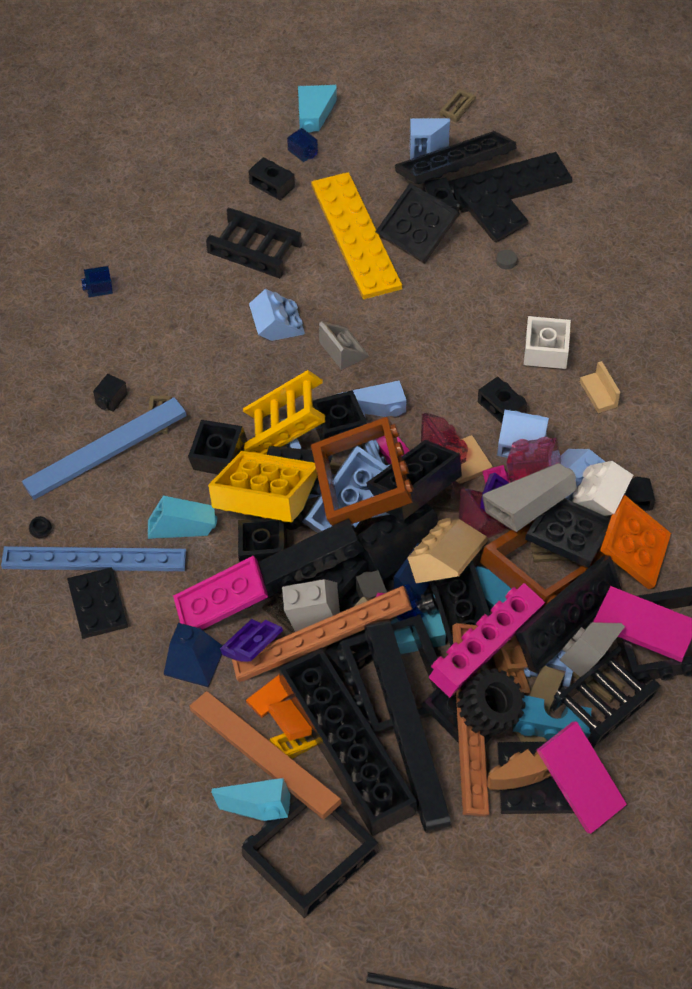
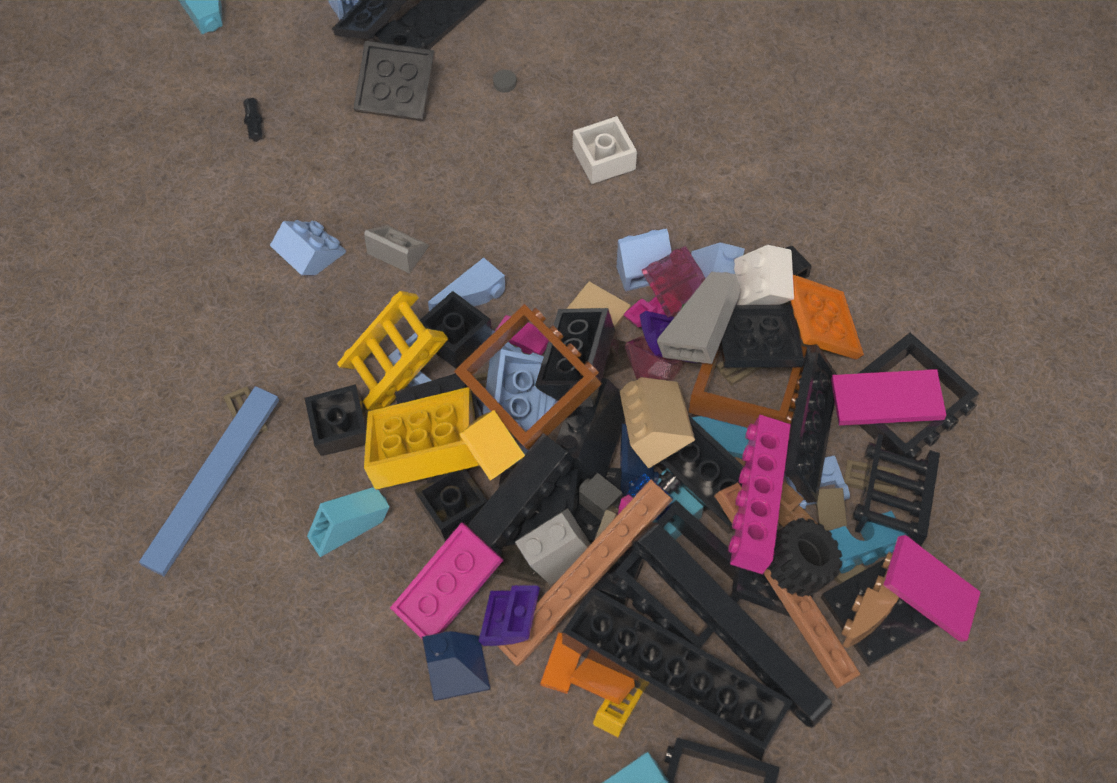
camera: 30 degrees left, 5 degrees up
(40, 527) = (193, 604): black plate -> none
(94, 558) = (274, 610): medium blue tile -> none
(97, 281) = (83, 295): clear blue brick -> none
(97, 603) = (311, 658): black plate -> none
(110, 392) = (177, 414): black brick -> none
(251, 258) = (236, 194): black fence -> none
(265, 755) = (603, 734): nougat tile -> none
(271, 178) = (206, 97): black brick -> none
(296, 208) = (252, 119): none -> black axle
(302, 145) = (217, 47): clear blue brick -> none
(304, 509) = (491, 444): none -> yellow slope
(356, 236) = (334, 121): yellow plate -> none
(440, 432) = (566, 295): clear pink slope -> none
(493, 210) = (461, 34): black plate -> none
(498, 397) = (585, 234): black brick -> none
(589, 646) = (855, 449): light grey slope -> none
(601, 389) = (684, 174): tan panel -> none

